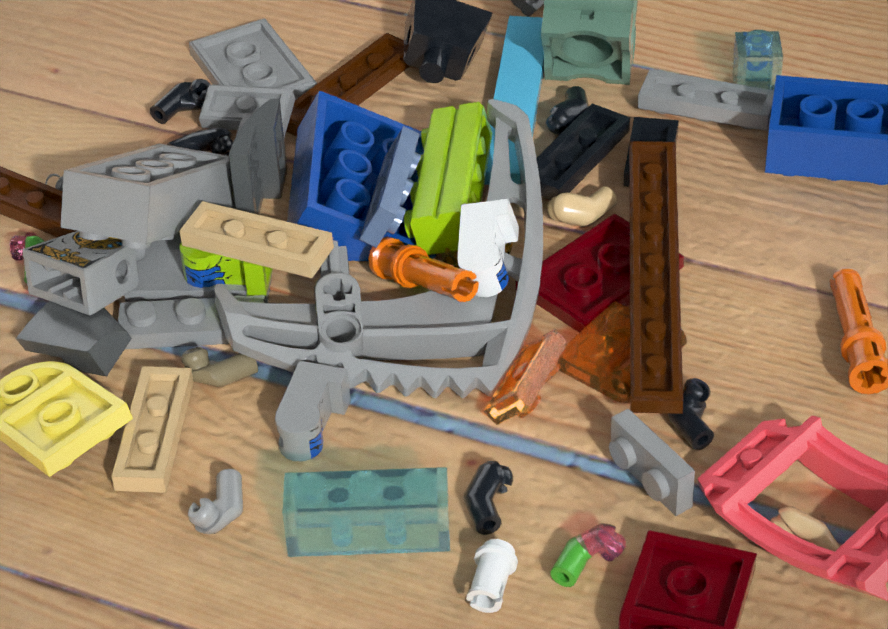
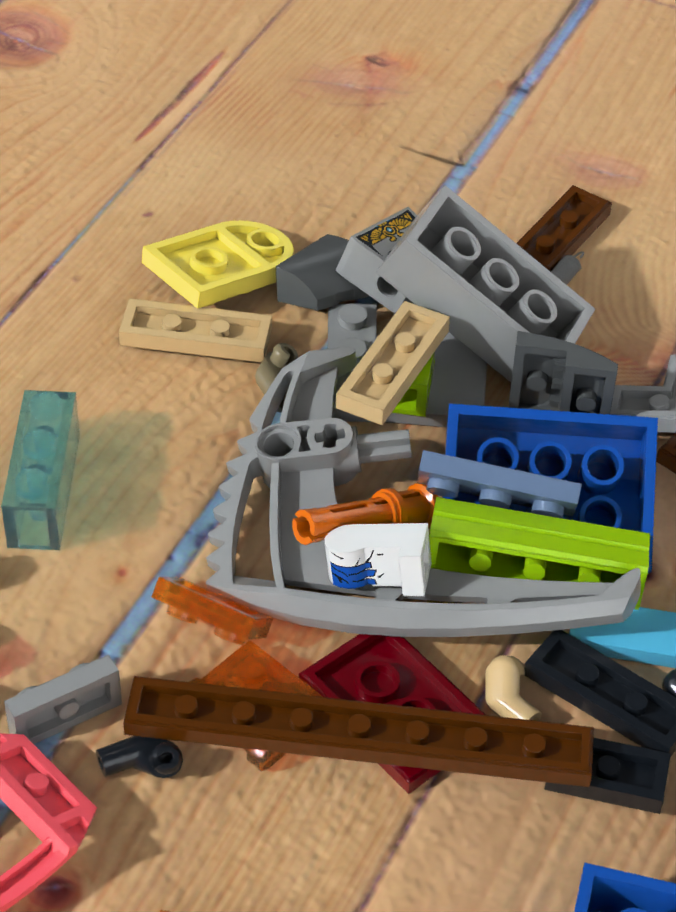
camera: 90 degrees right, 5 degrees up
(216, 139) = (641, 362): black arm -> none
(226, 507) = (88, 381): light grey arm -> none
(306, 407) = (196, 435): light grey leg -> none
(480, 493) = (56, 565): black arm -> none

